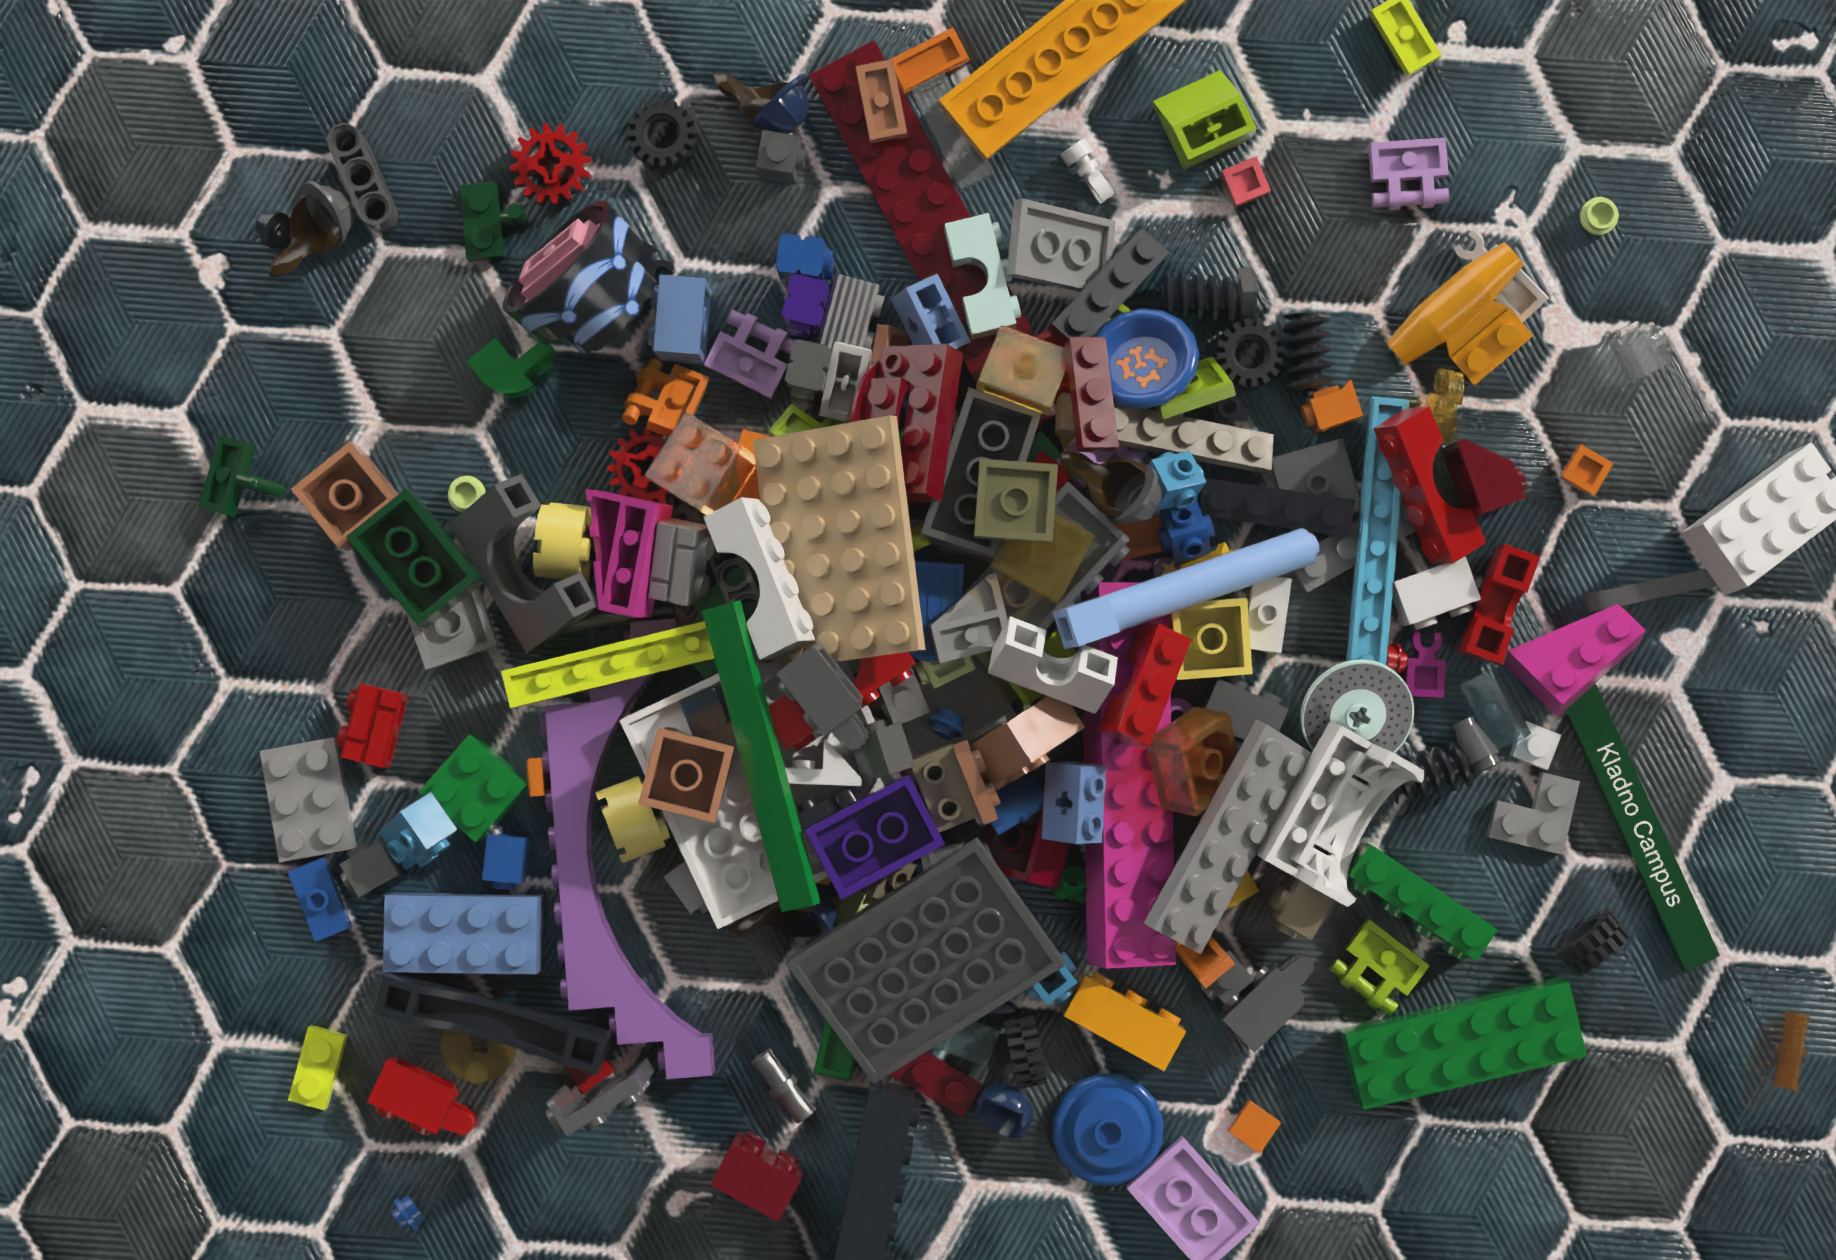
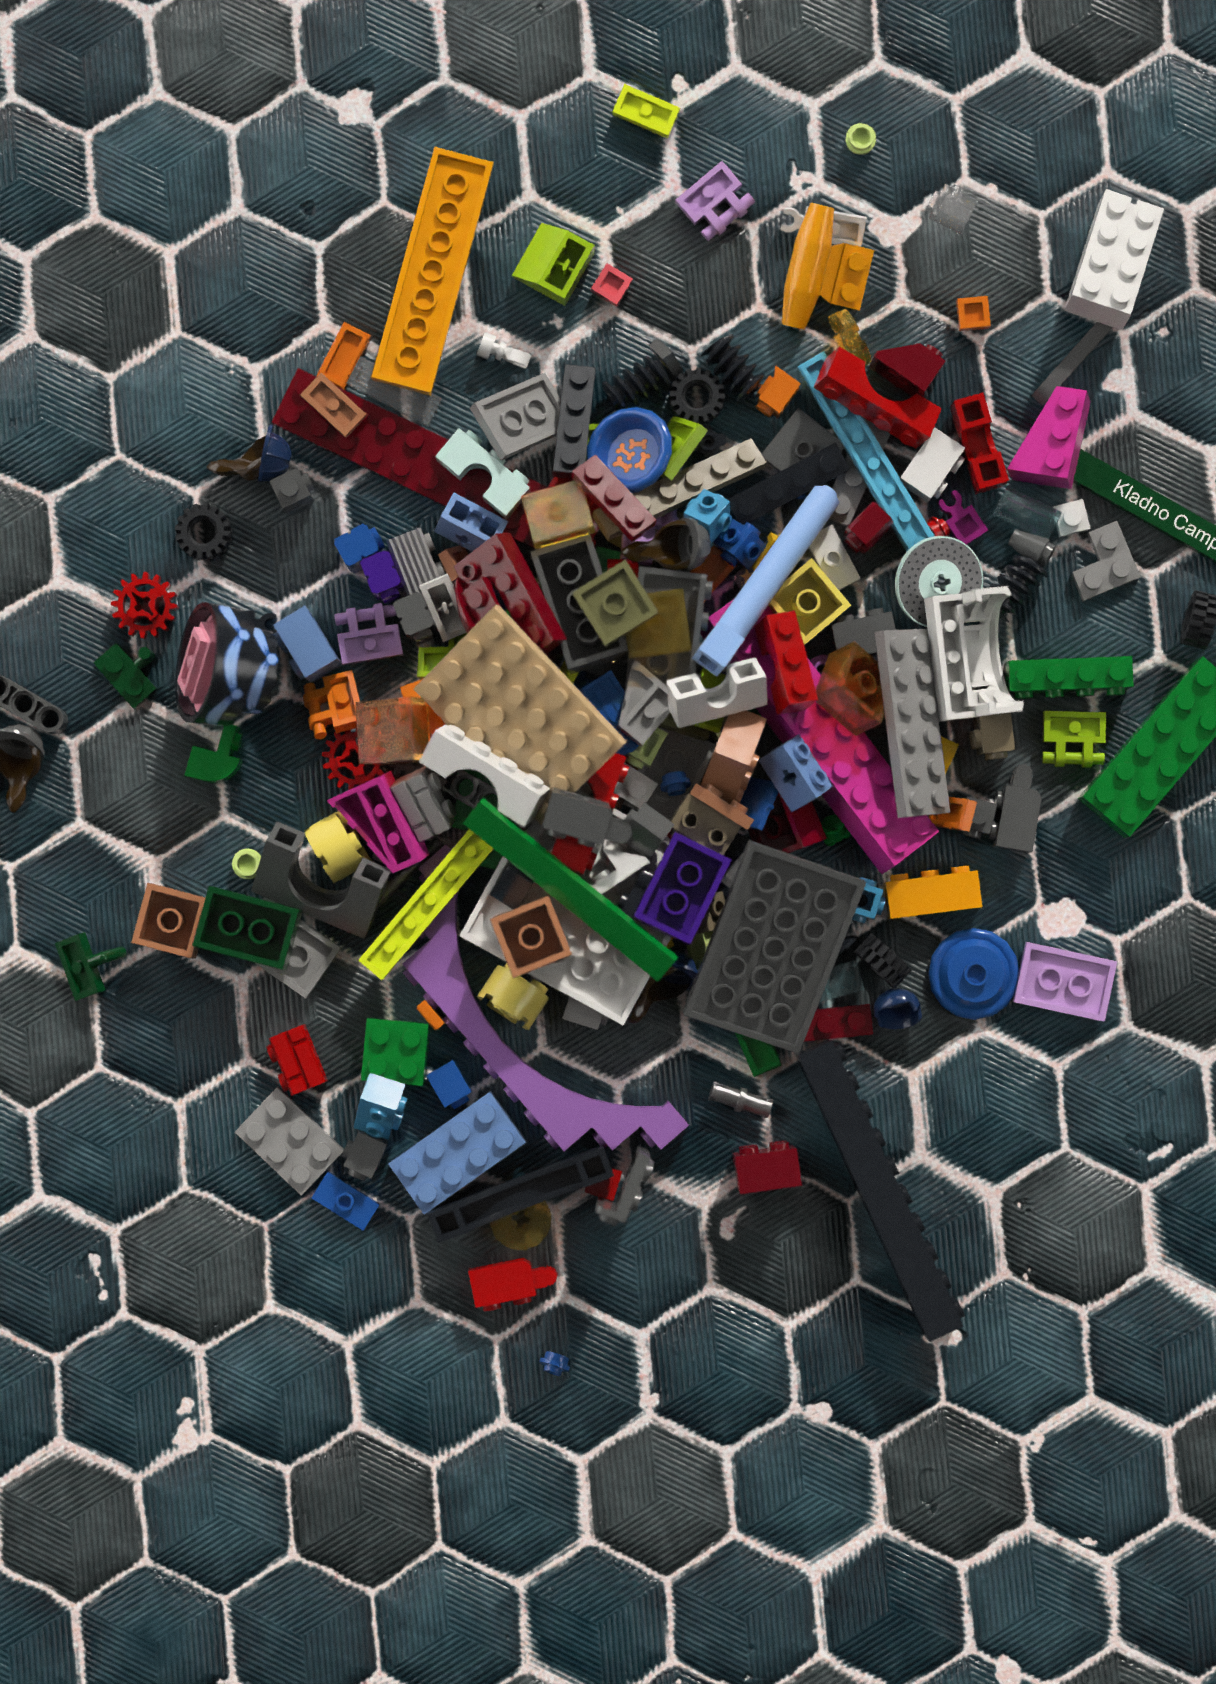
camera: 35 degrees left, 0 degrees up
(317, 1067) = (425, 1312): neon yellow plate -> none
(1254, 1126) = (1068, 901): orange tile -> none
(1324, 609) = (867, 528): none -> dark red brick

